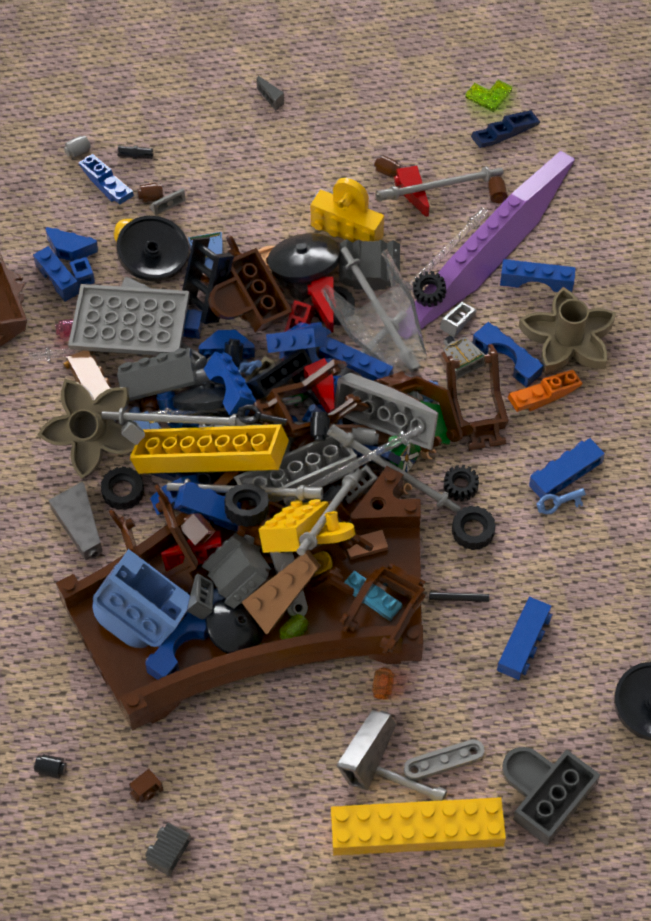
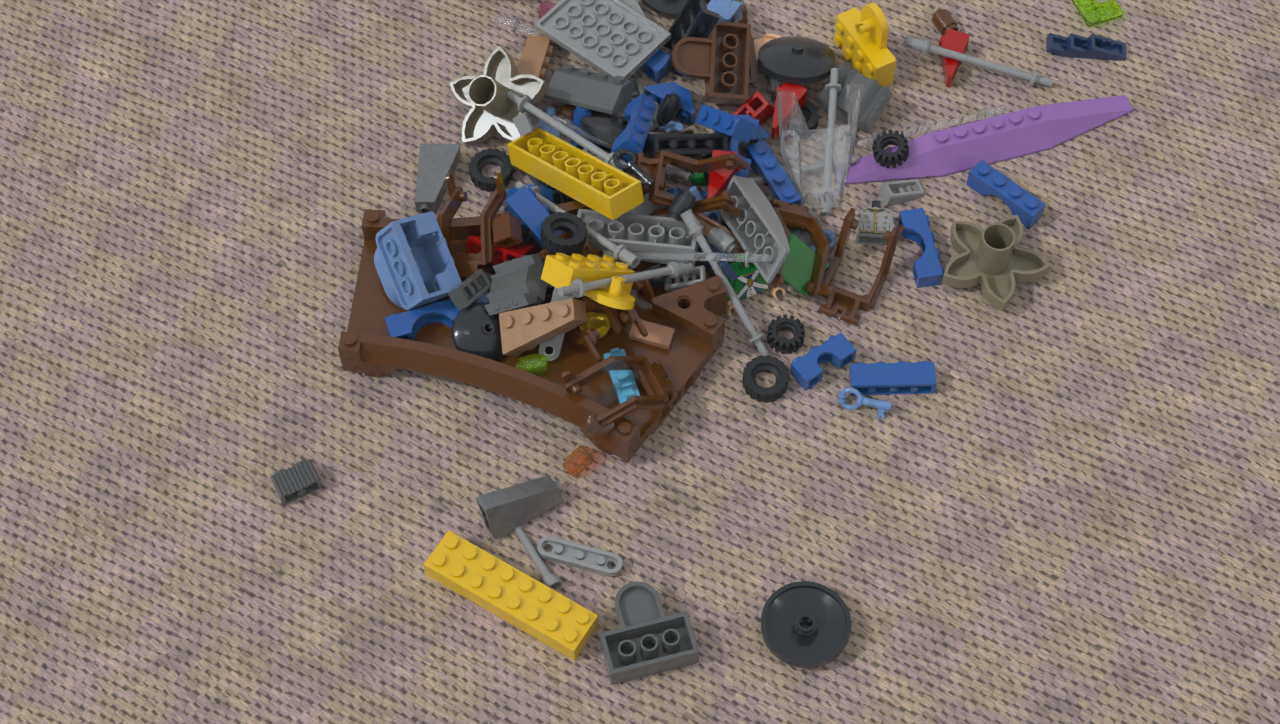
camera: 35 degrees right, 0 degrees up
(50, 766) = (257, 358): black brick -> none
(145, 787) = (317, 421): reddish brown brick -> none
(459, 596) = (706, 430): black bar -> none
(497, 190) = (1032, 96): reddish brown brick -> none
(509, 473) = (834, 350): none -> blue arch
(524, 638) = (732, 499): blue brick -> none
(547, 391) = (931, 301): orange slope -> none

